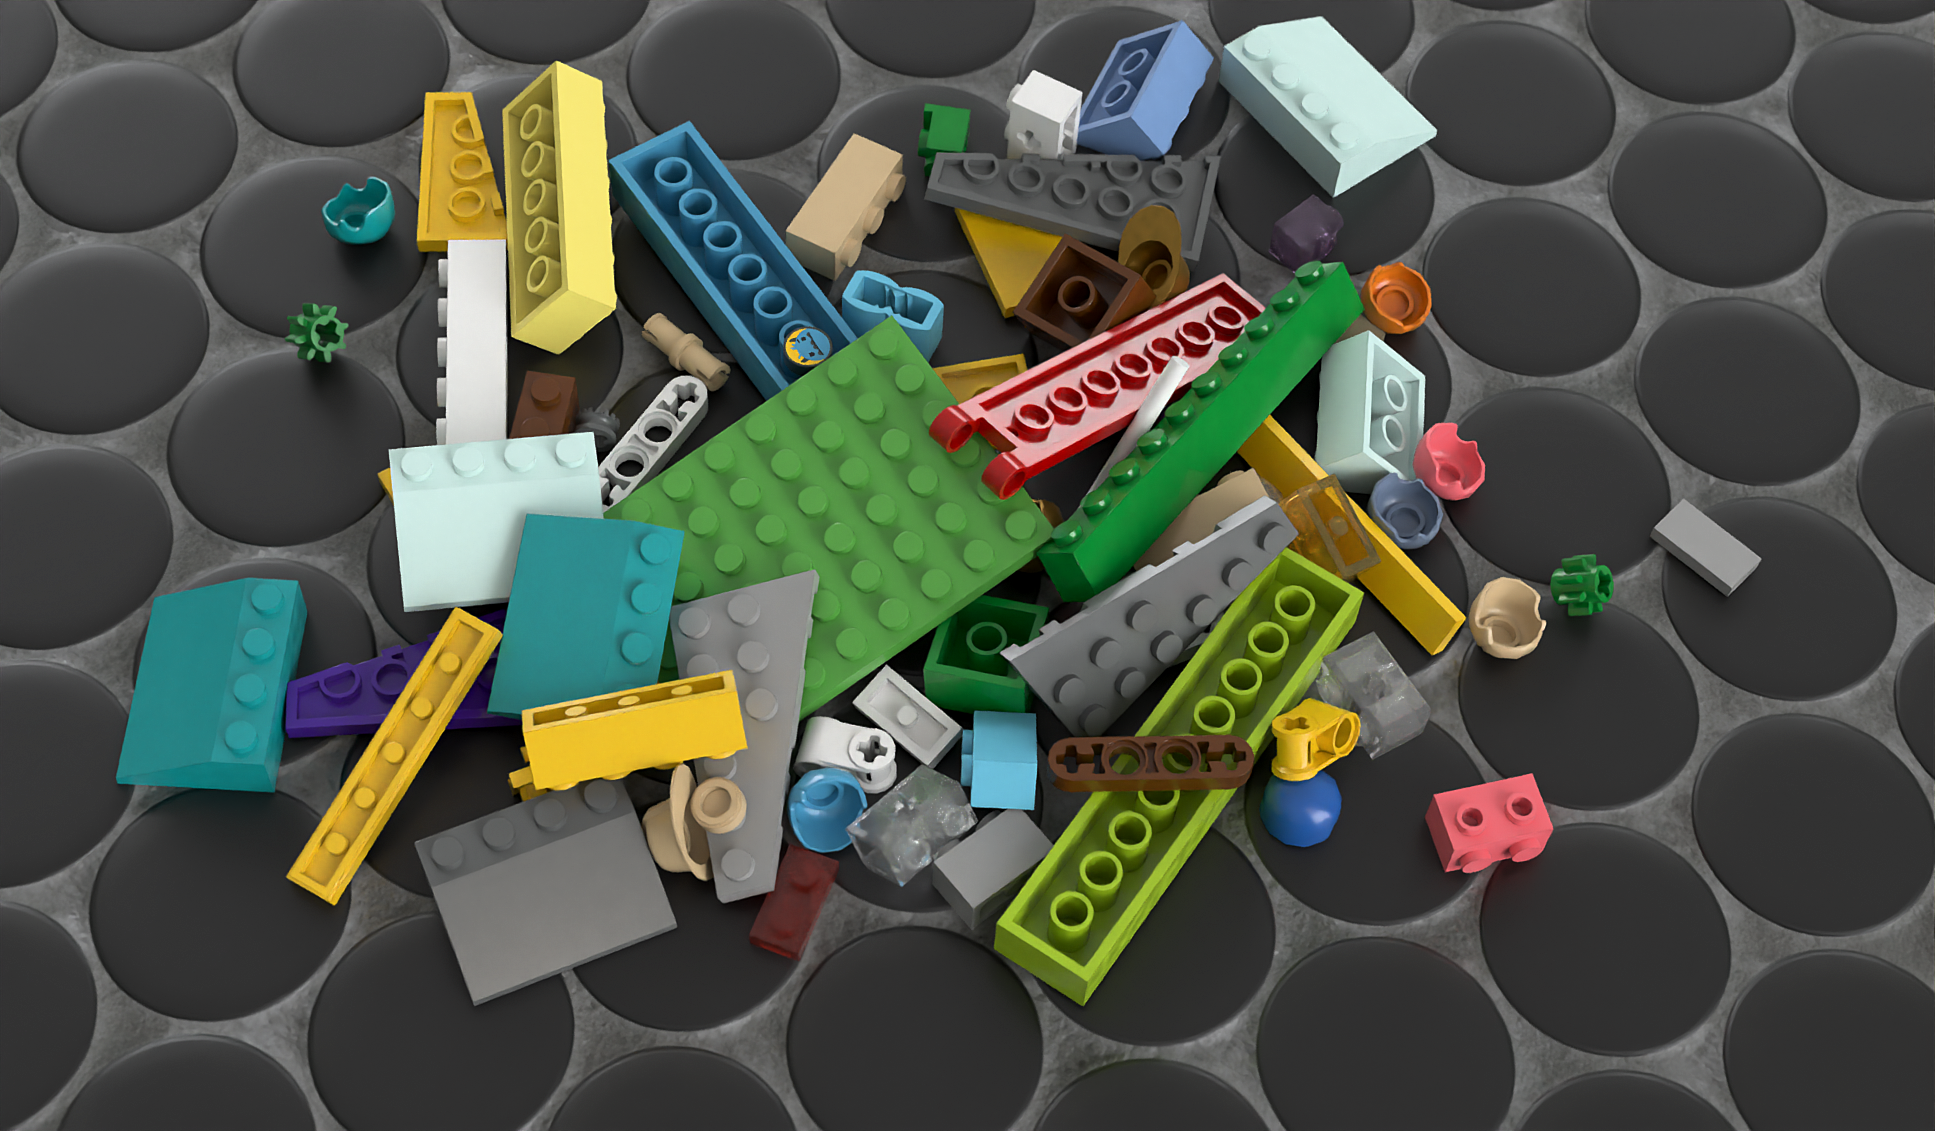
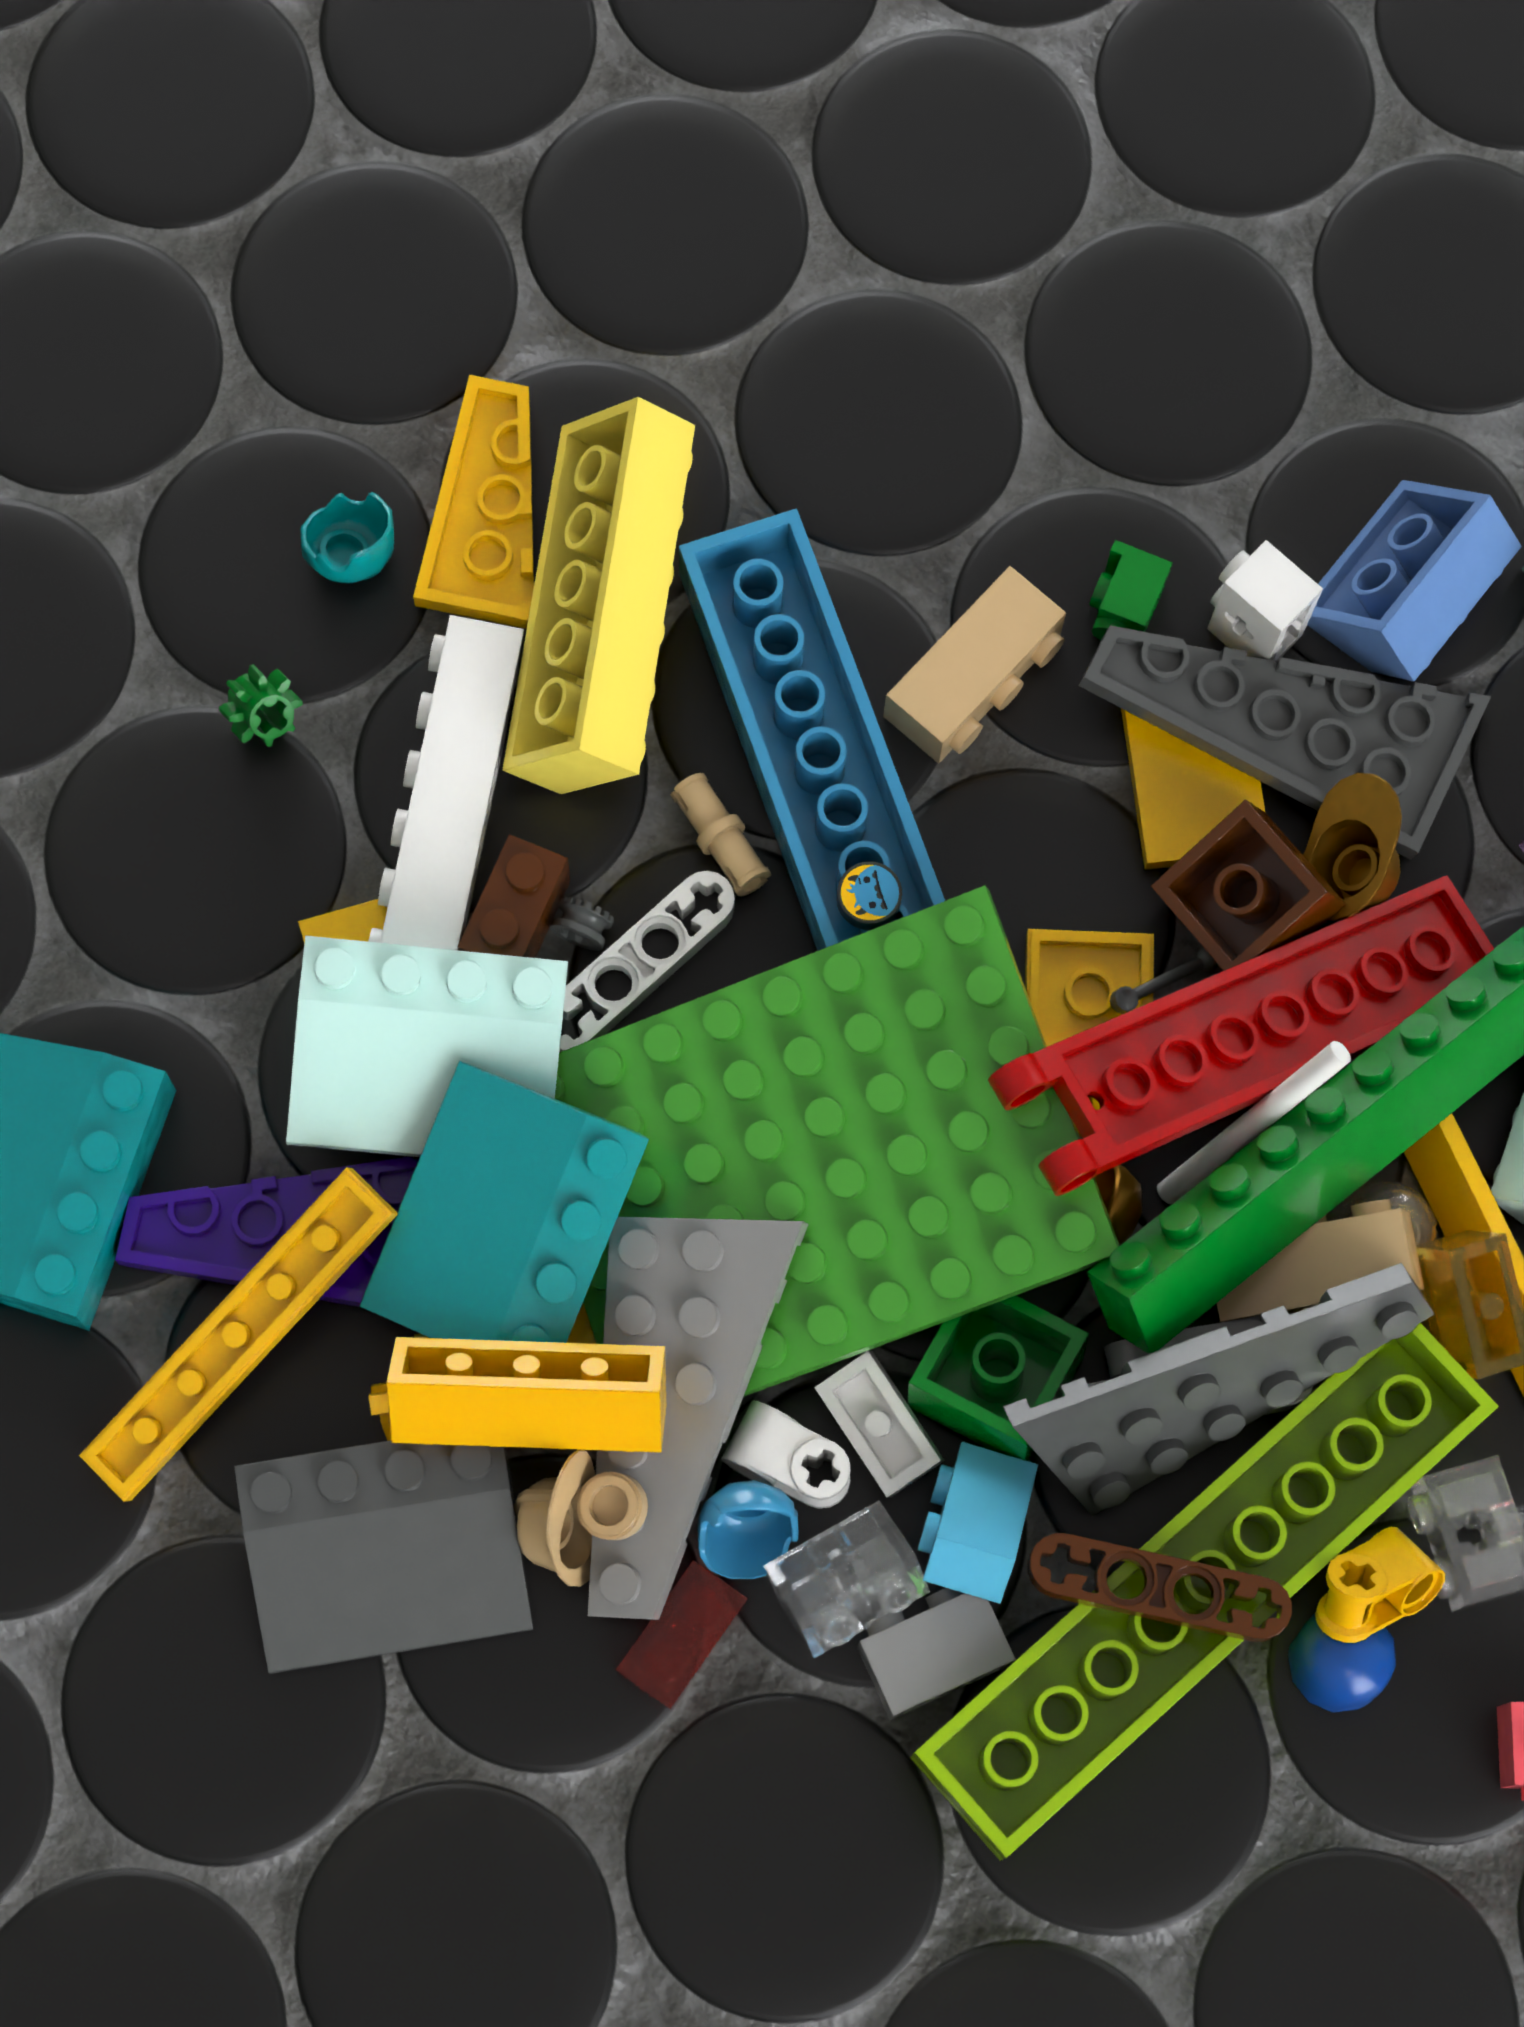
camera: 15 degrees right, 15 degrees up
(874, 298) = (982, 842): medium azure brick -> none

